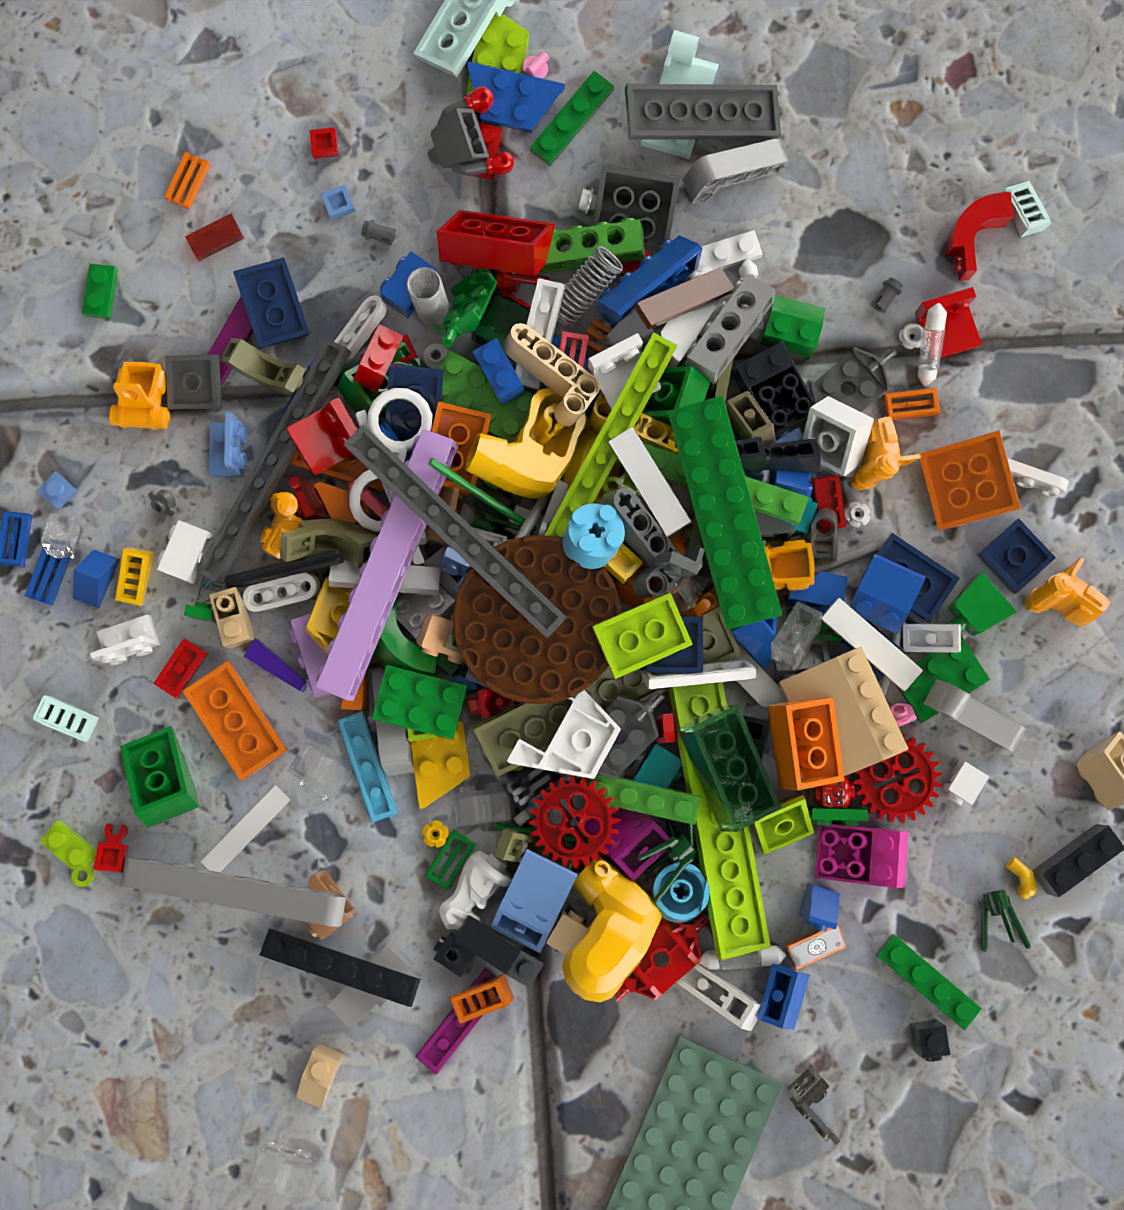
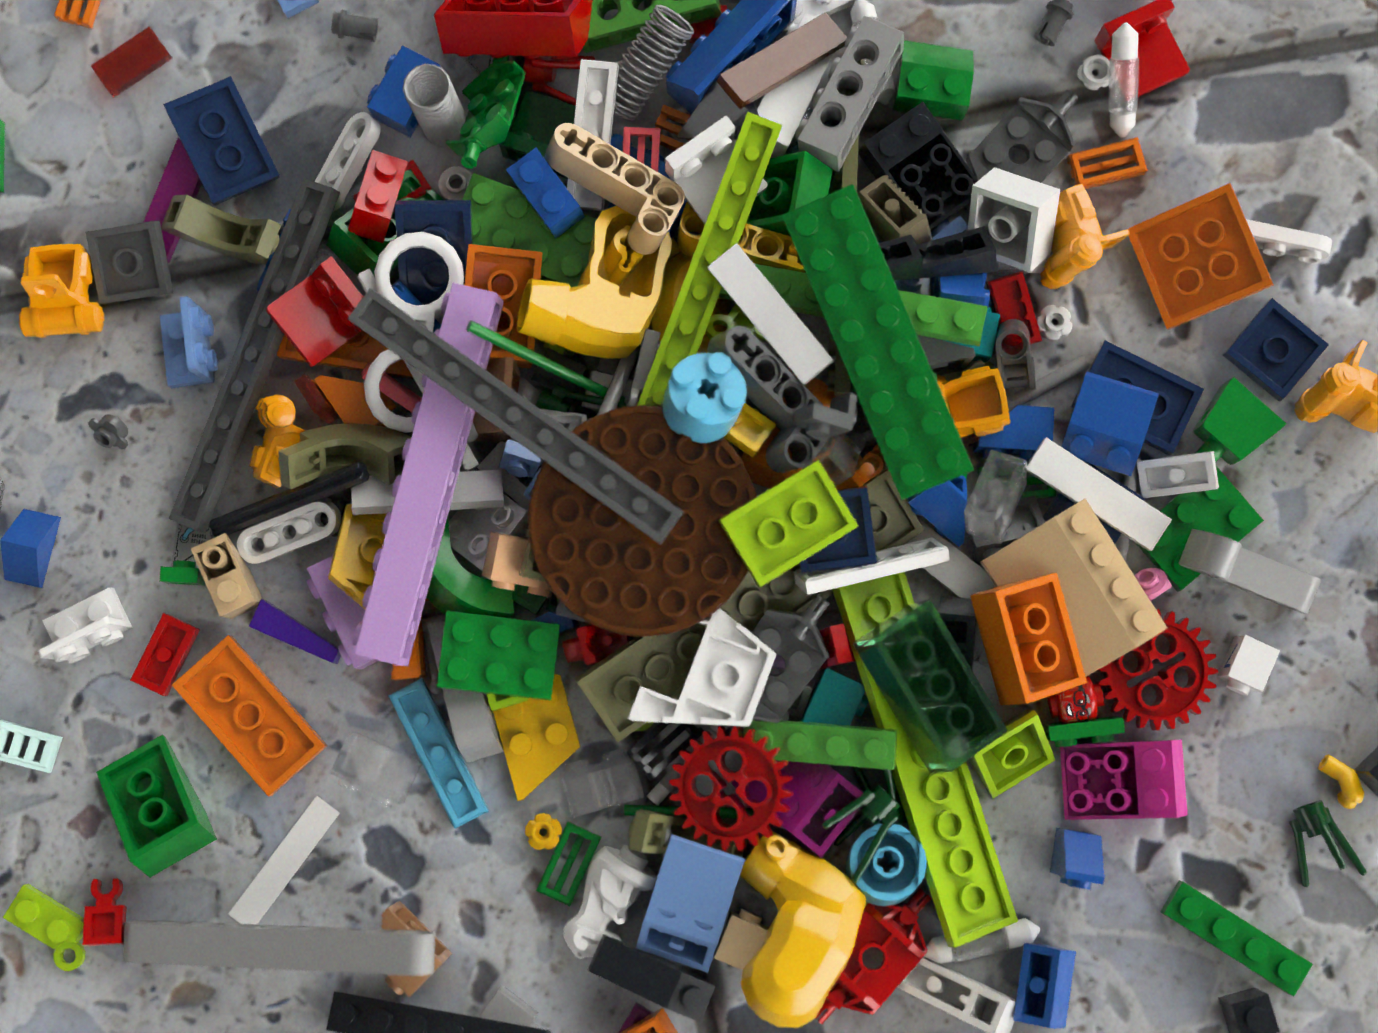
camera: 10 degrees left, 0 degrees up
(145, 567) = (70, 523): yellow slope -> none
(184, 551) = (149, 495): white brick -> none
(303, 507) = (304, 413): red plate -> none
(453, 955) = (590, 992): black brick -> none
(814, 946) = (1076, 912): slope -> none

